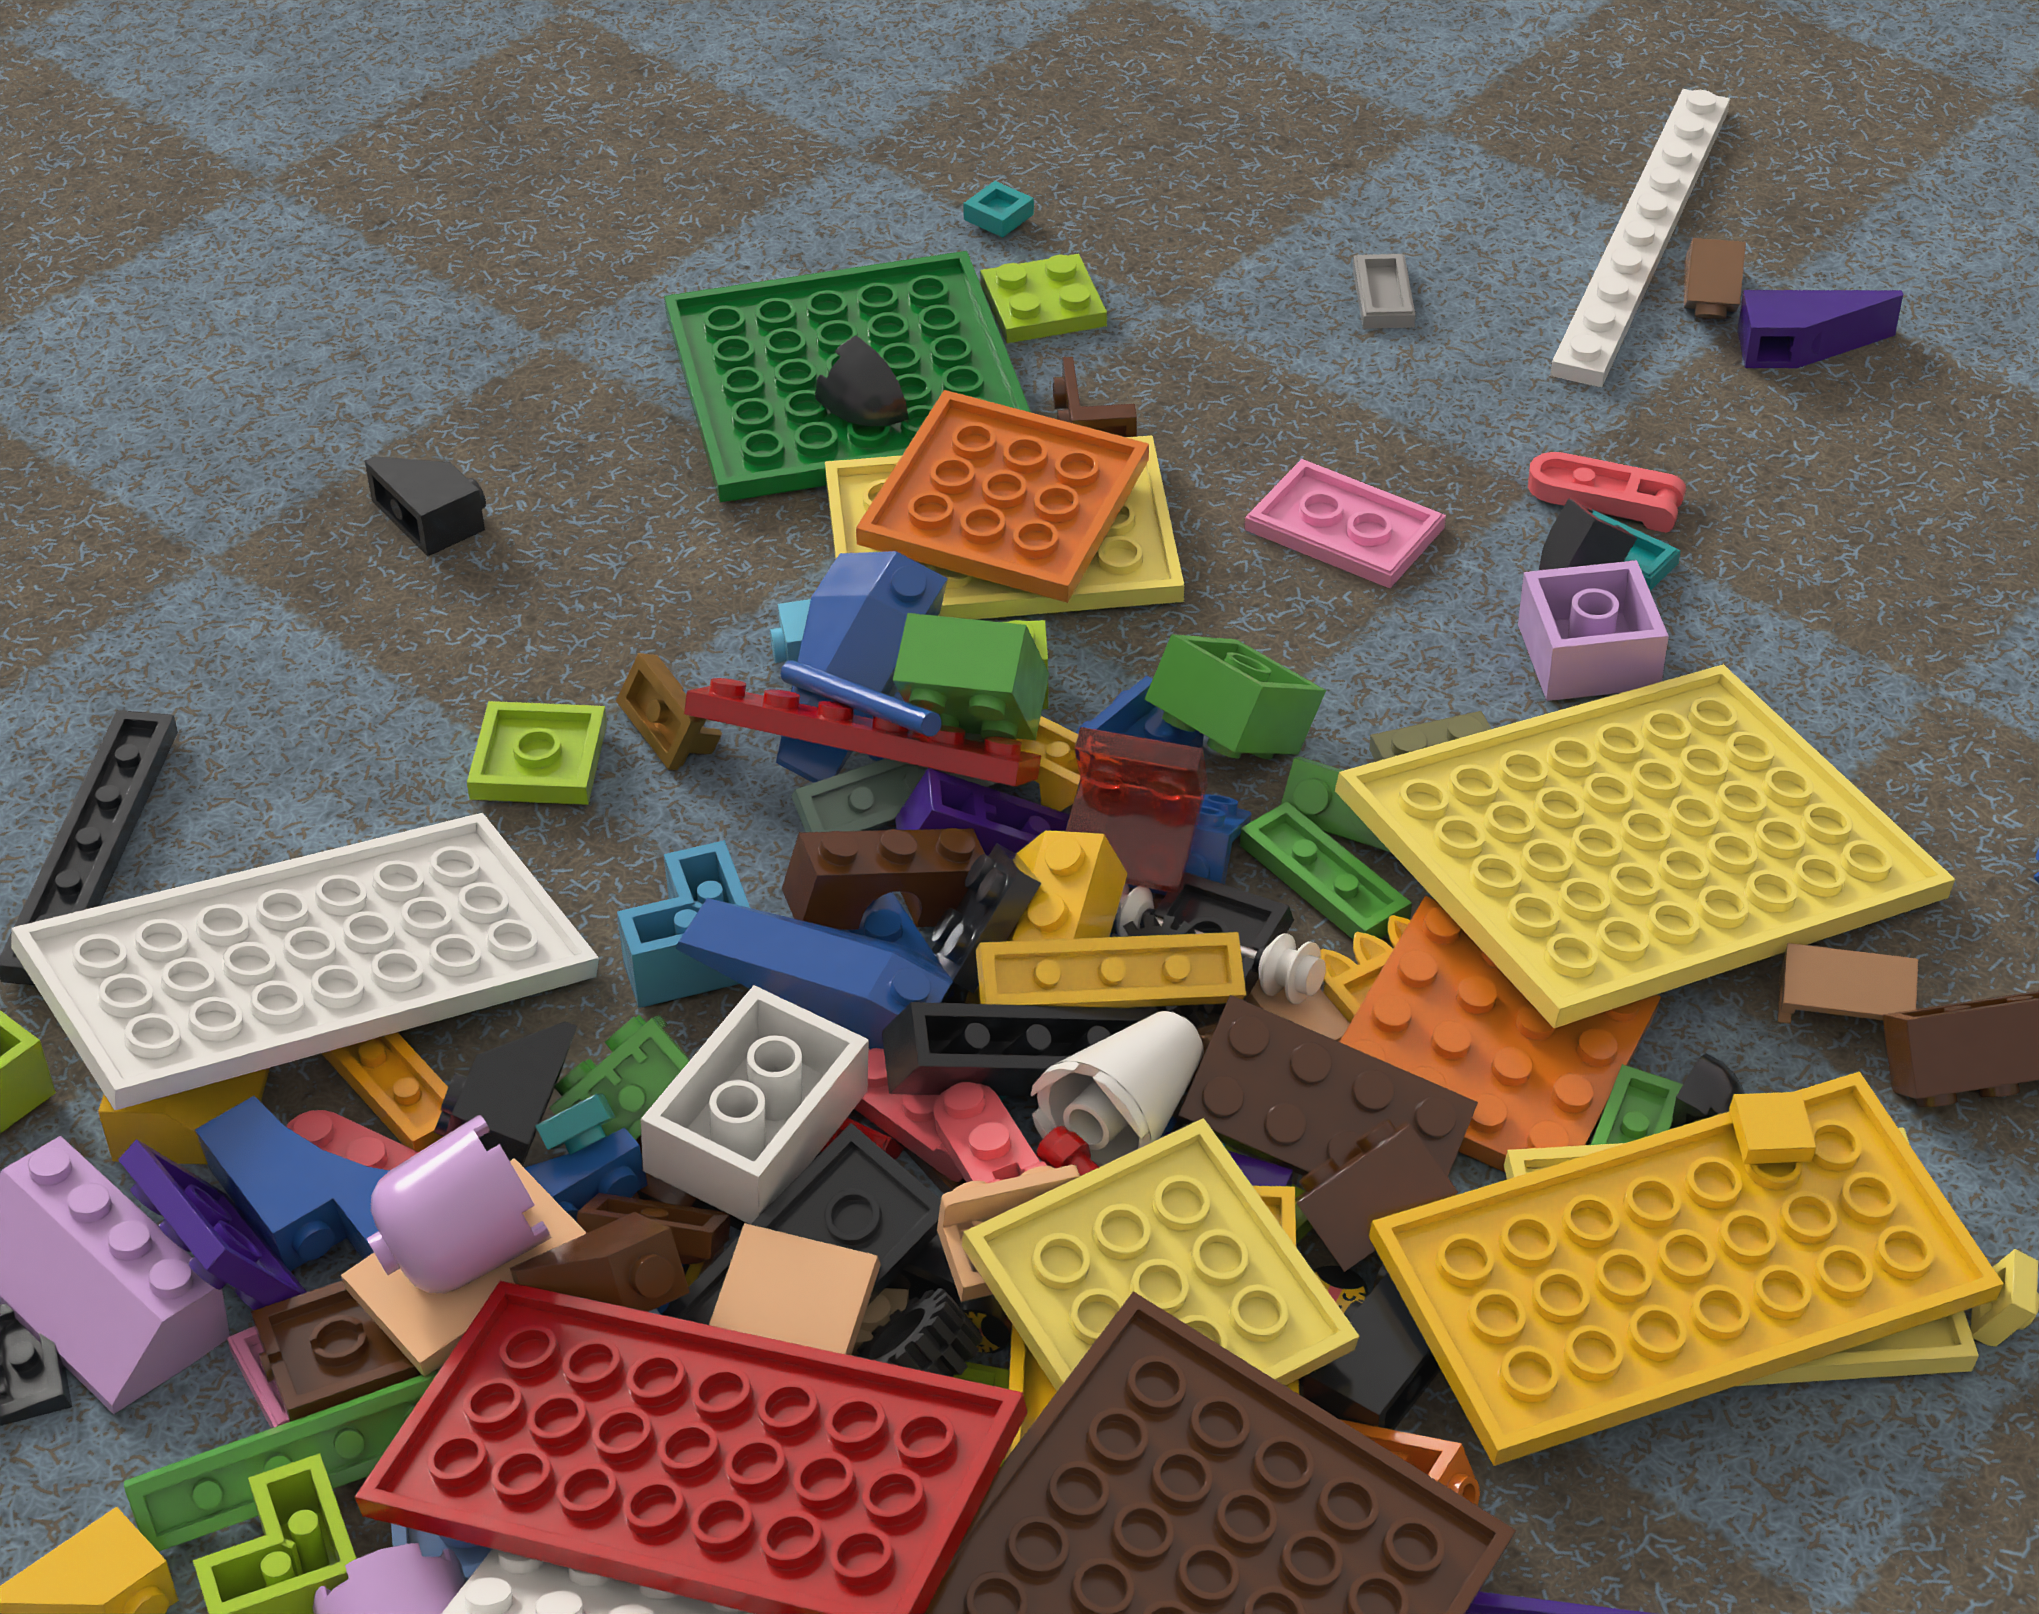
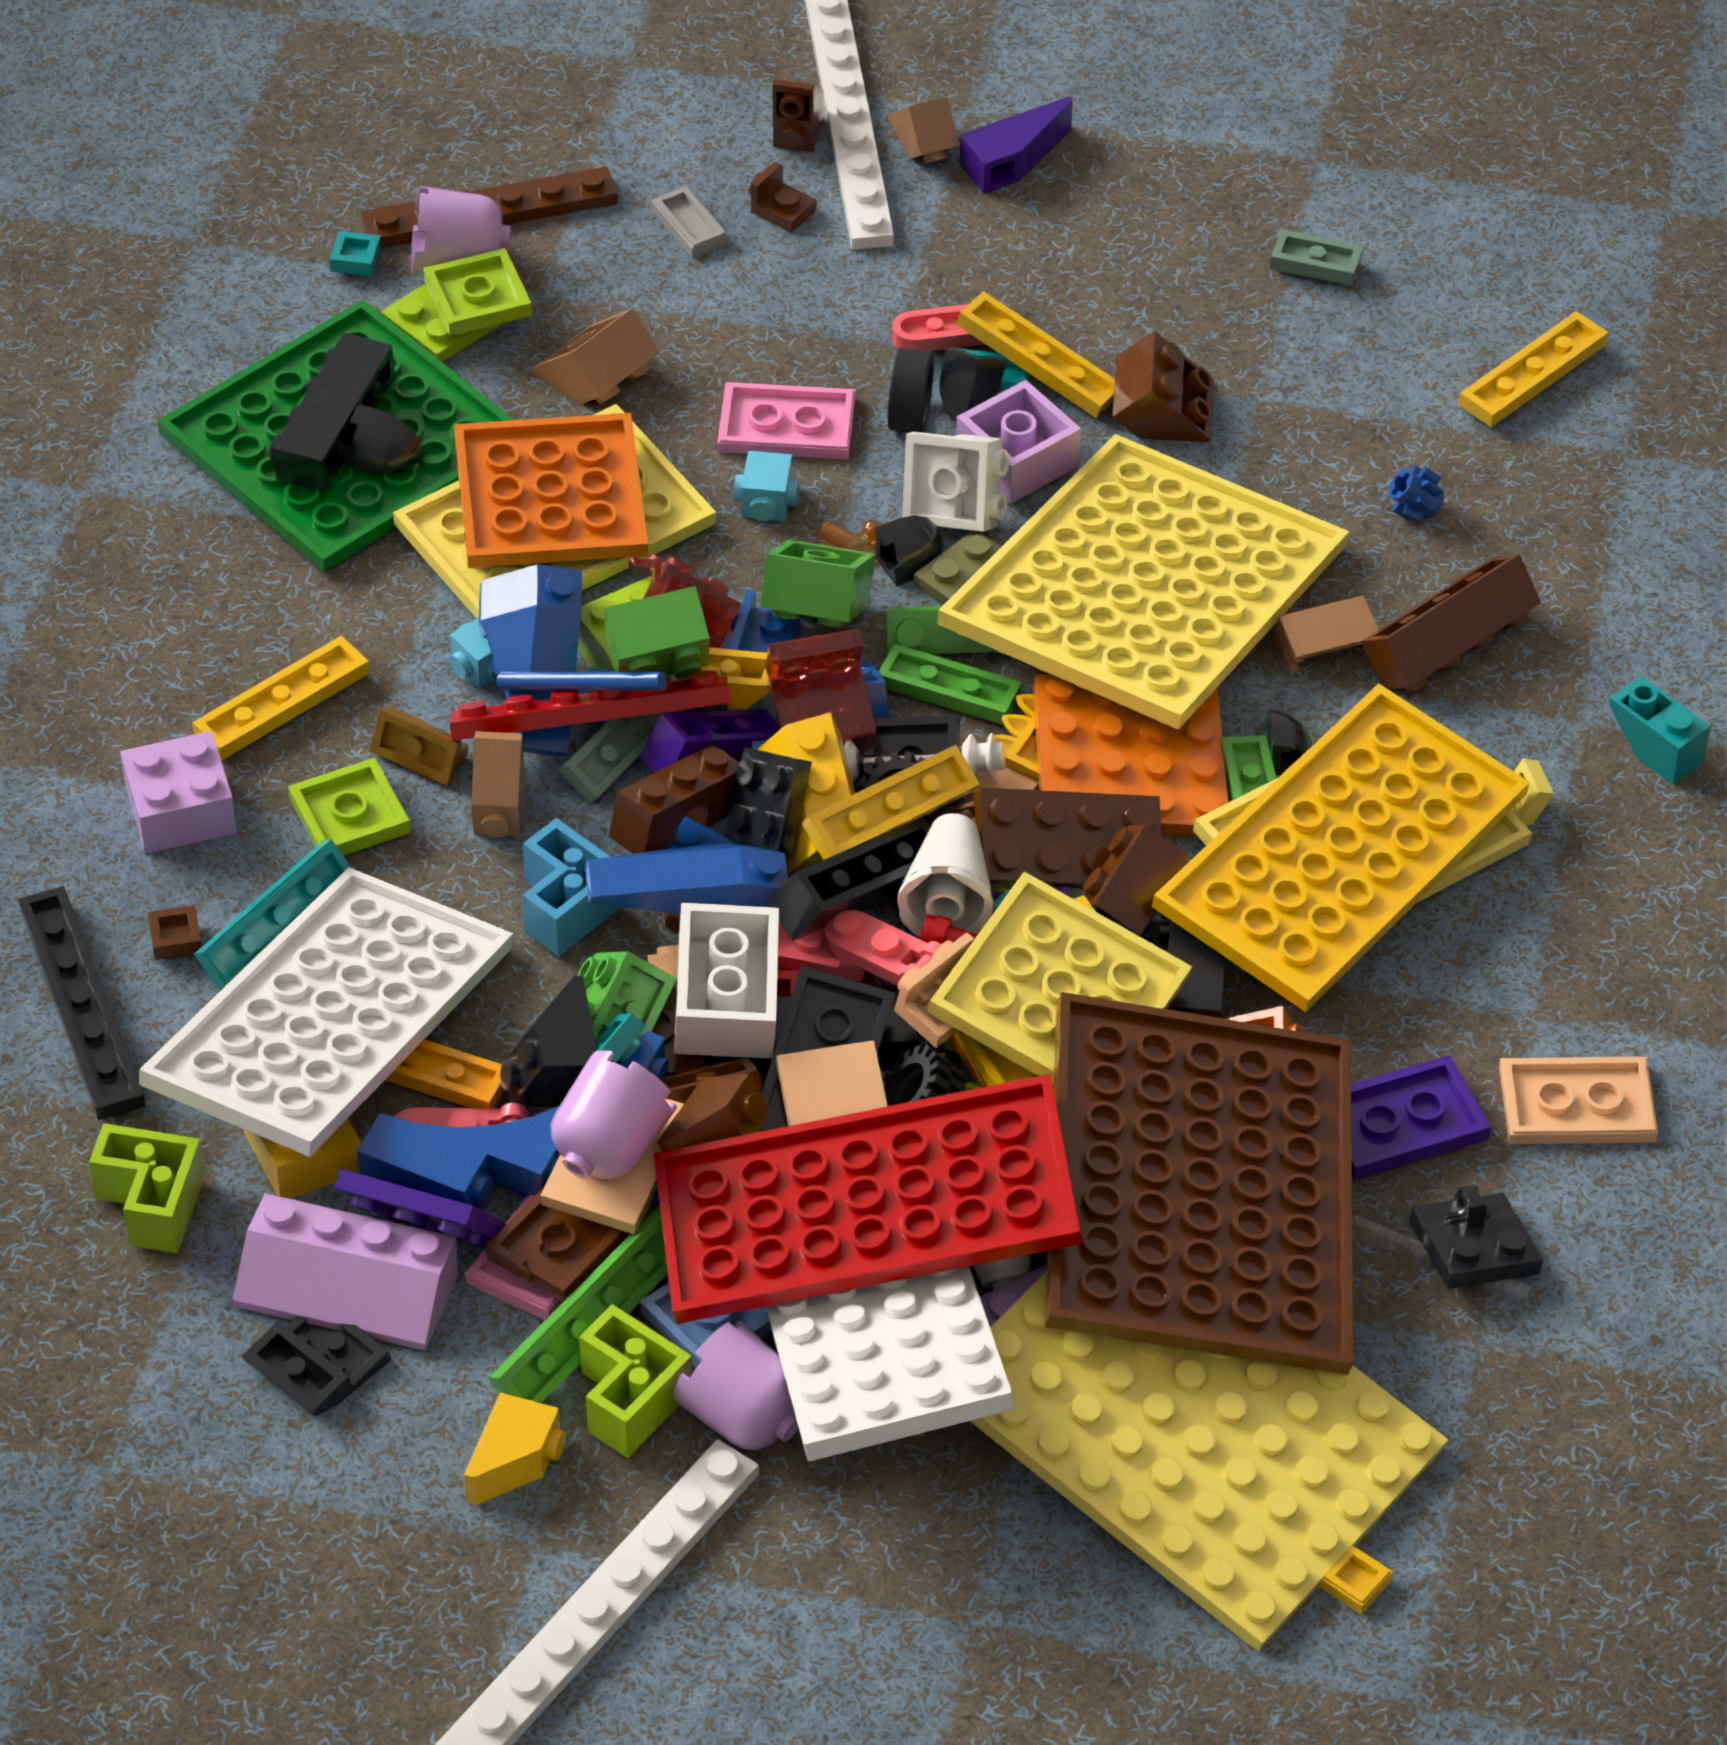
camera: 30 degrees left, 5 degrees up
(248, 810) = (174, 932): none -> reddish brown plate
(365, 821) = (270, 913): none -> teal tile
(370, 663) = (178, 792): none -> lavender brick
(427, 500) = (108, 653): black slope -> none
(564, 610) = (283, 696): none -> yellow plate
(703, 782) = (498, 784): none -> medium nougat slope
(783, 363) = (313, 440): none -> black brick
(1078, 671) = (675, 575): none -> clear red bracket
(1084, 277) = (477, 292): none -> lime plate
(1106, 214) = (455, 227): none -> lavender cylinder
(1113, 419) = (527, 393): reddish brown bracket -> none
(1177, 386) = (600, 359): none -> medium nougat slope
(1180, 211) = (516, 201): none -> reddish brown plate
(1264, 579) = (766, 486): none -> medium azure brick
(1343, 680) = (842, 538): none -> clear orange arm
(1385, 698) = (907, 546): none -> black brick
(1479, 644) = (955, 480): none -> white plate
(1494, 297) = (779, 202): none -> reddish brown bracket
(1498, 531) = (910, 390): none -> black tyre
(1572, 216) = (797, 115): none -> reddish brown slope
(1685, 547) = (1038, 353): none -> yellow plate
(1772, 1128) = (1352, 739): yellow tile -> none
(1814, 640) = (1162, 392): none -> reddish brown slope

